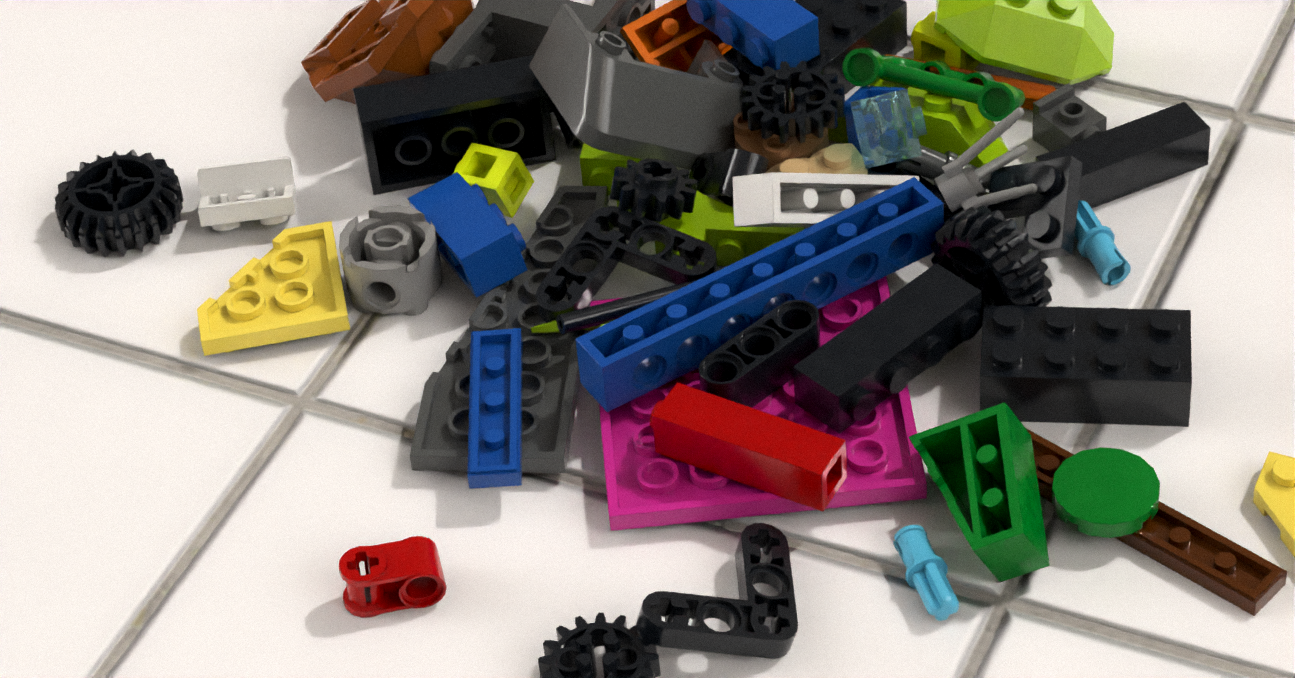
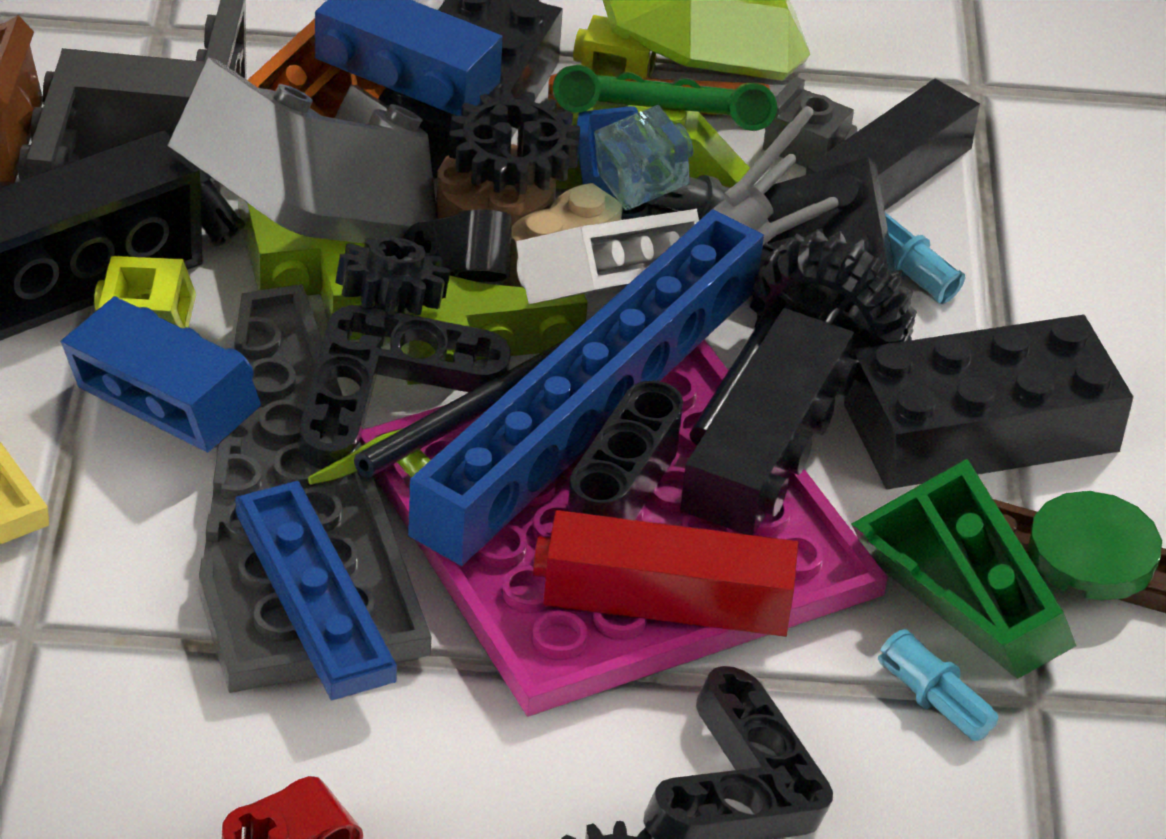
camera: 30 degrees left, 0 degrees up
(391, 261) = (75, 425): light grey brick -> none

